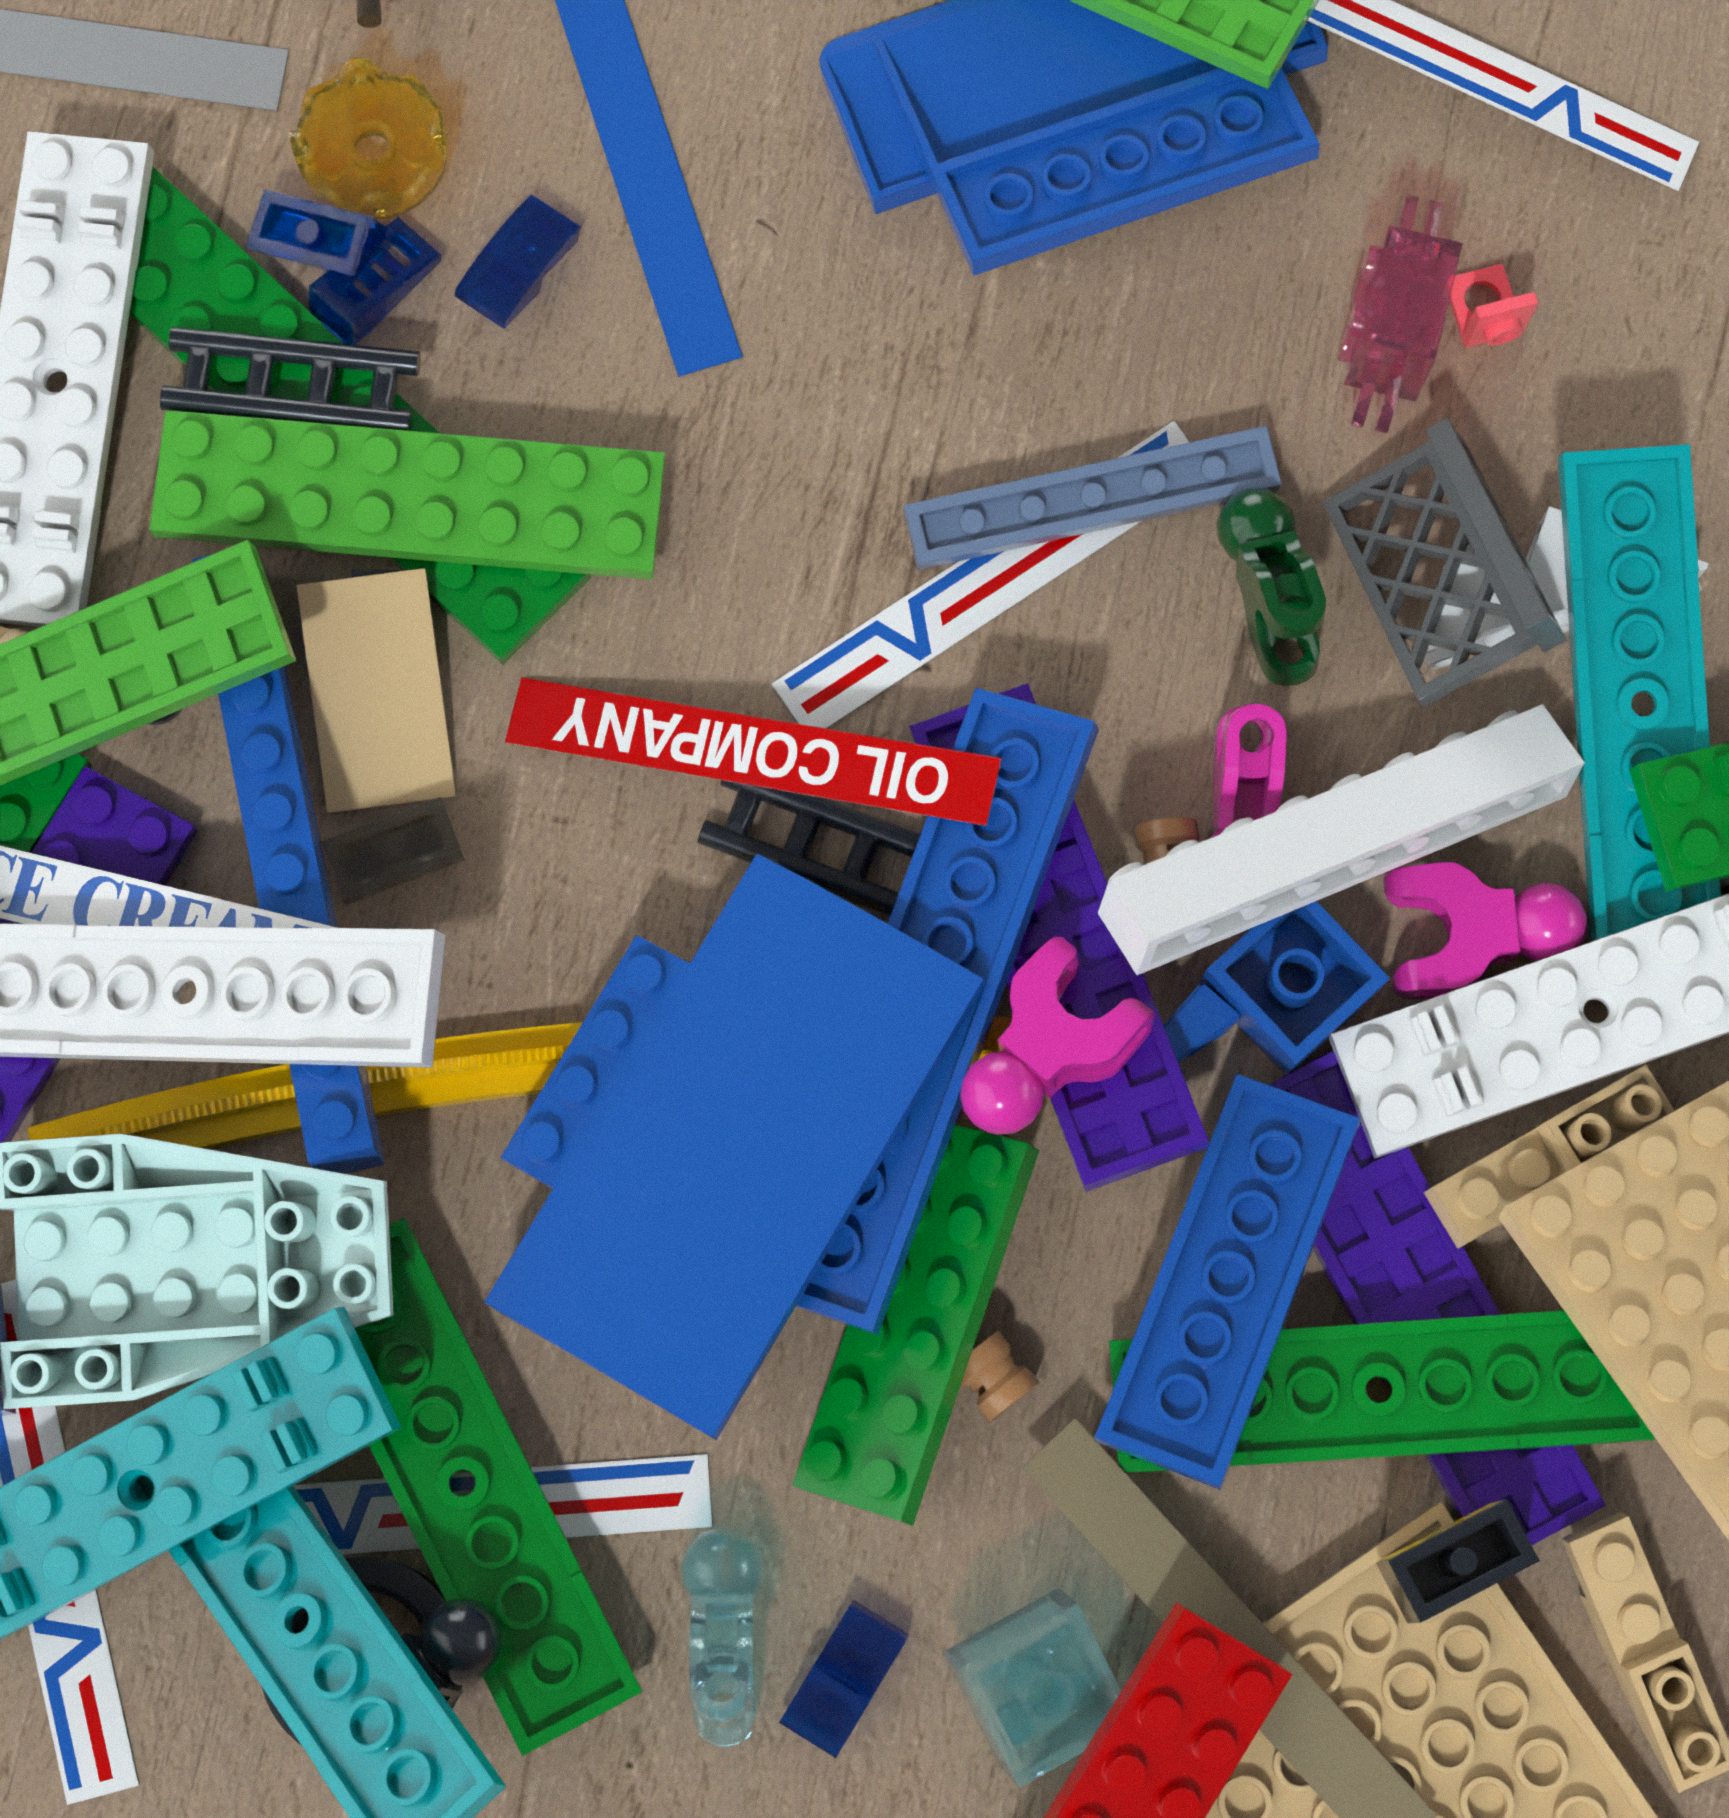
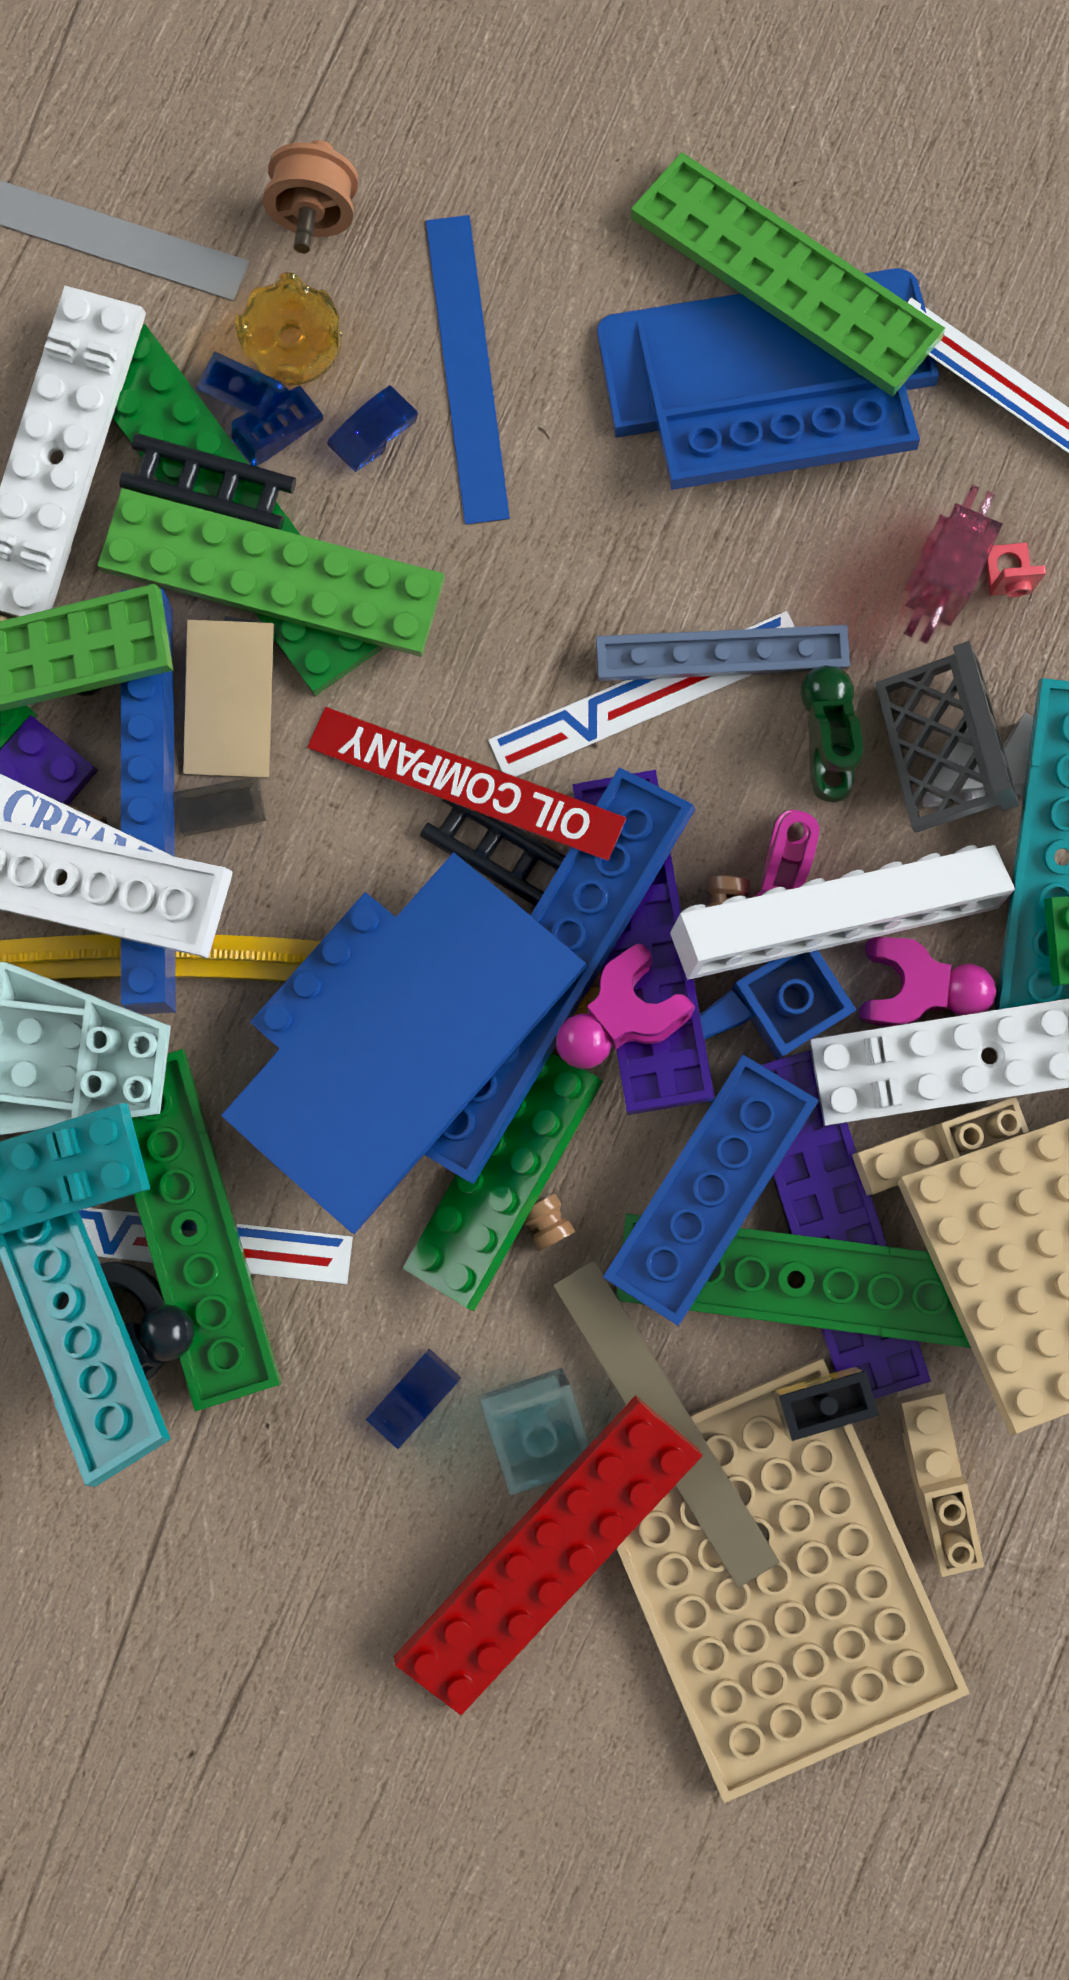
camera: 15 degrees right, 5 degrees up
(722, 1577) = (335, 1369): clear light blue piece -> none

